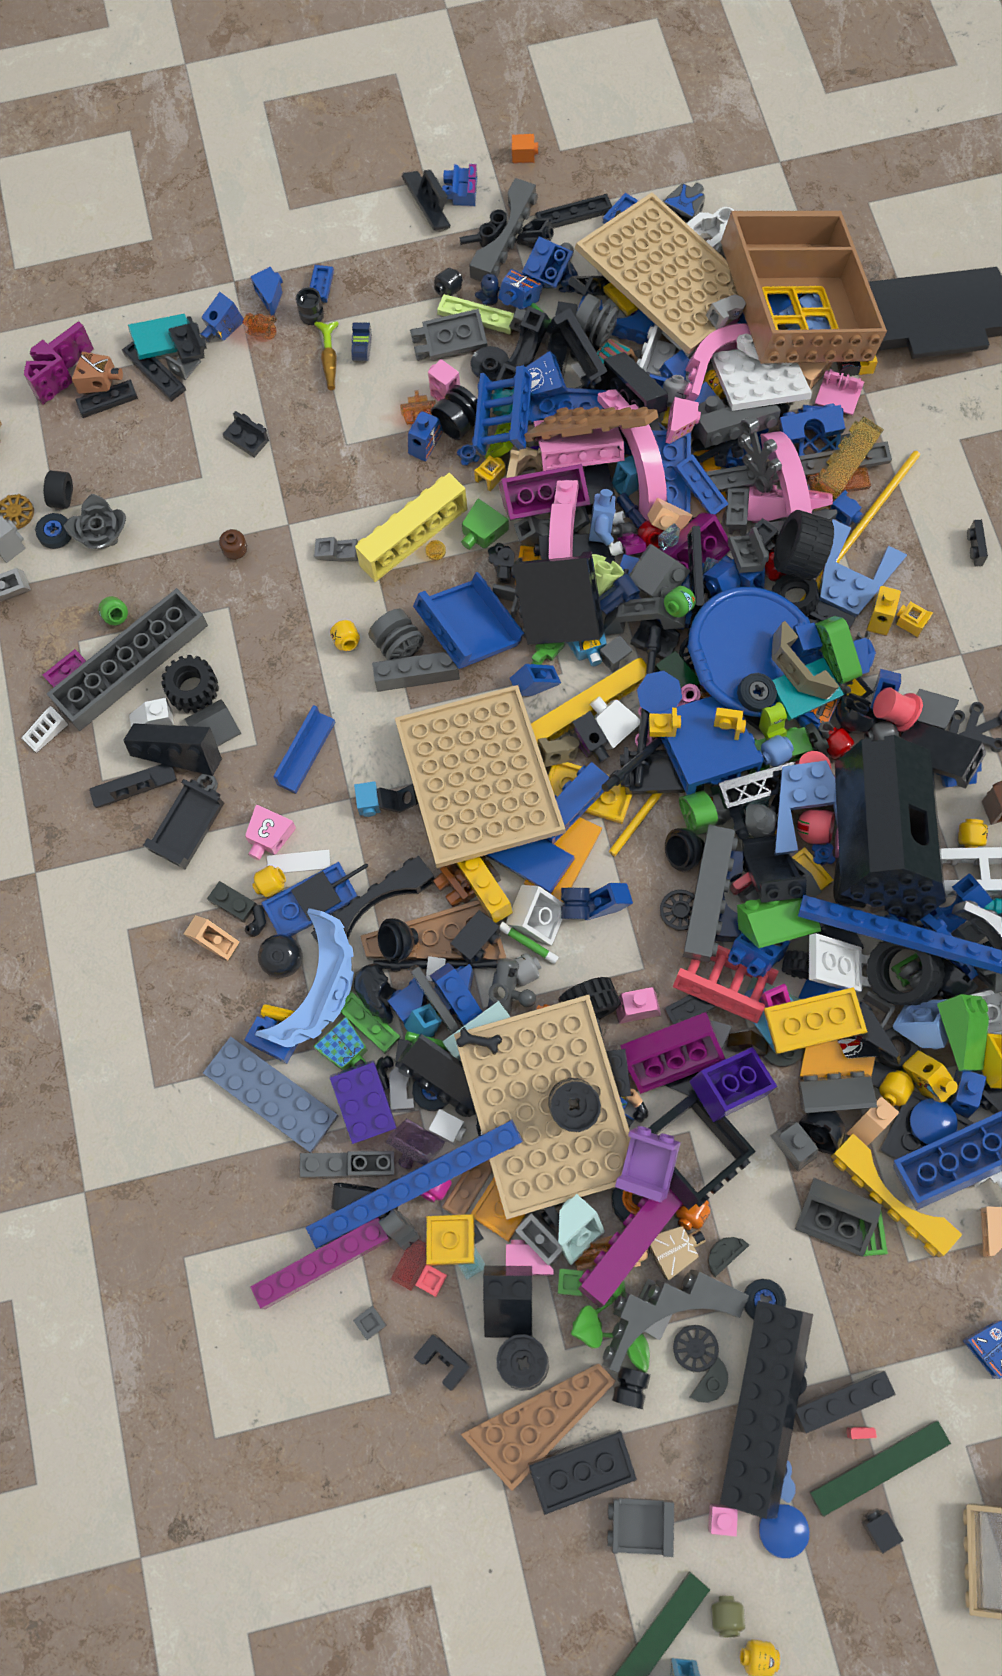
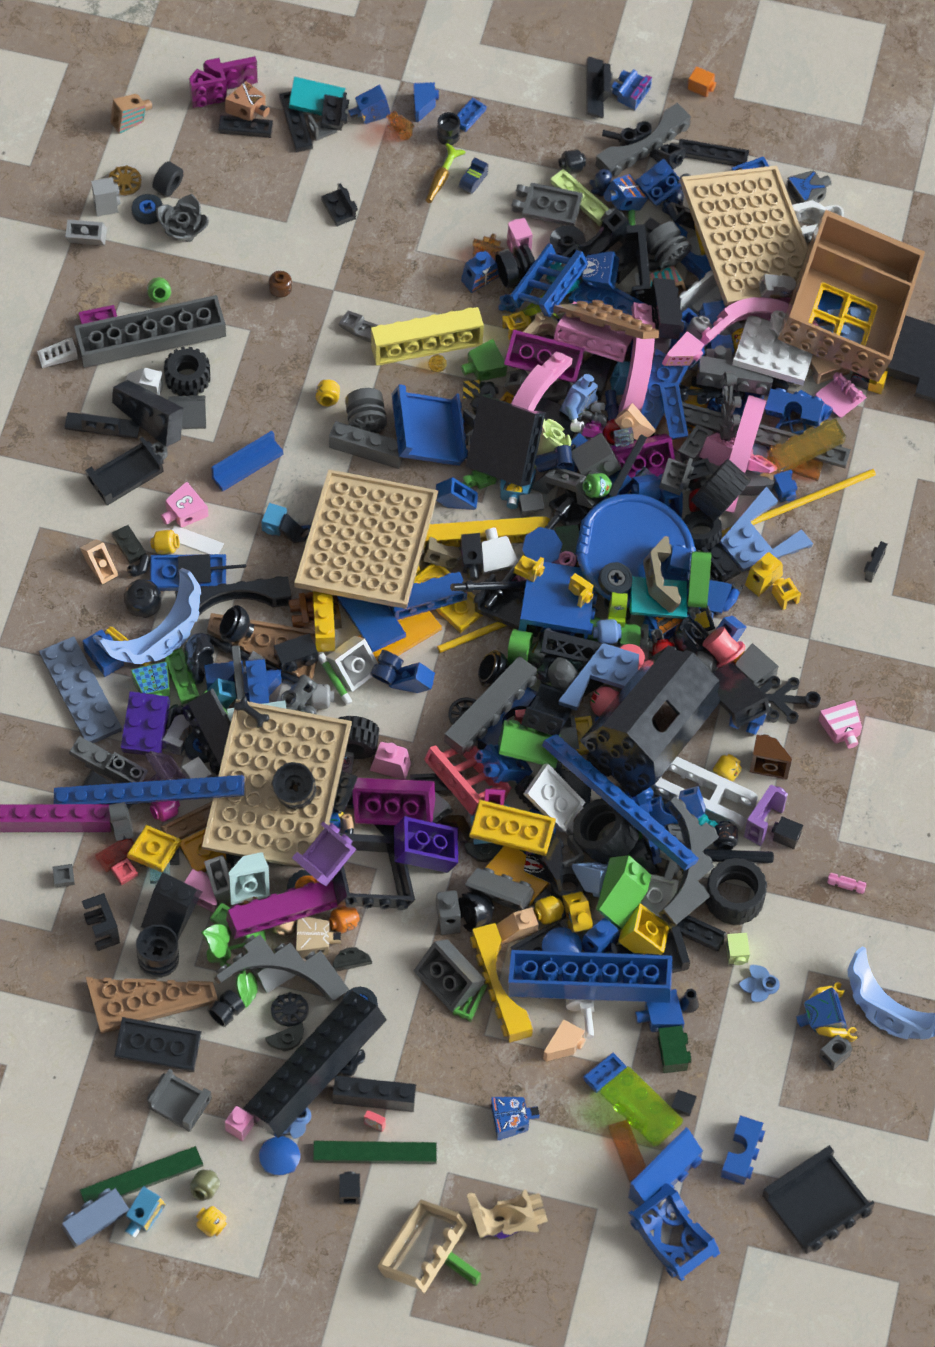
camera: 20 degrees right, 10 degrees down
(483, 560) = (468, 387): none -> sticker

